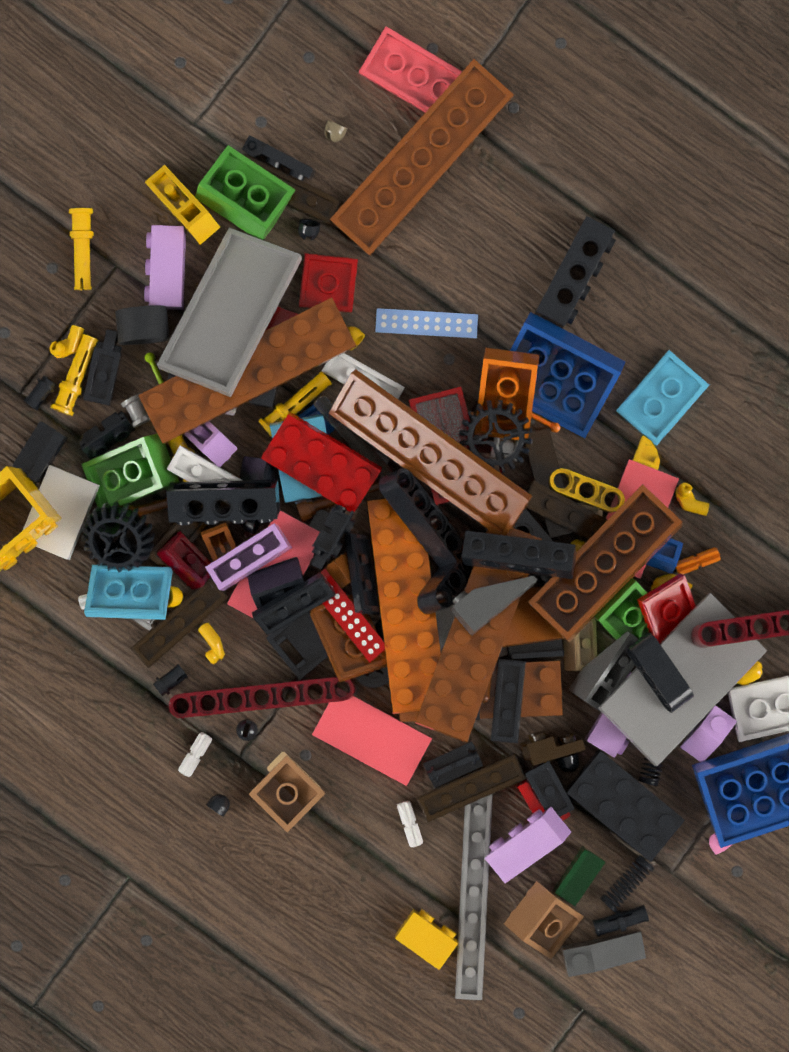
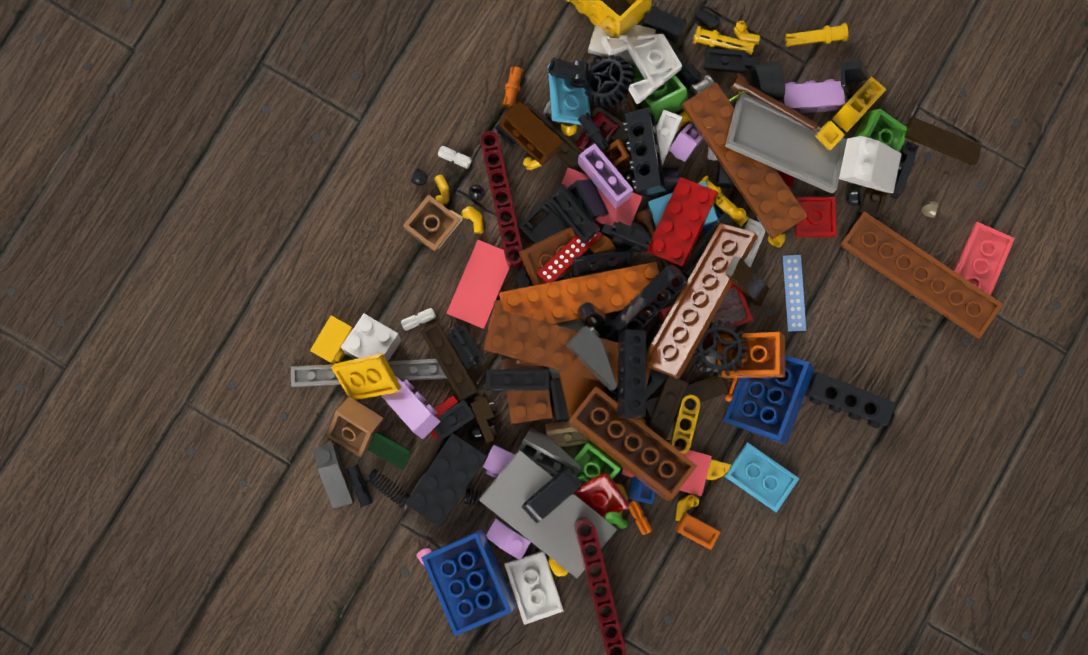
camera: 90 degrees right, 5 degrees down
(92, 475) = (653, 58): none -> white wing
(101, 582) = (575, 71): none -> black piece
(107, 666) = (512, 87): none -> orange pin
(145, 218) = (852, 72): none -> black panel
(147, 365) = (740, 84): none -> reddish brown piece
(178, 649) = (531, 133): none -> reddish brown brick
(188, 565) = (593, 132): none -> black pin
(225, 253) = (829, 135): none -> yellow plate
(237, 773) = (443, 188): none -> yellow arm
(247, 102) = (943, 141): none -> dark brown tile
(274, 207) = (870, 164): none -> white slope
(280, 735) = (476, 217): none -> yellow arm
(314, 392) = (727, 207): none -> yellow arm
(411, 389) = (747, 280): none -> dark brown tile
(437, 888) = (370, 338): none -> white brick
(483, 898) = (366, 377): none -> yellow tile
(697, 592) = (616, 518): none -> bright green piece
(722, 489) = (697, 531): none -> orange tile

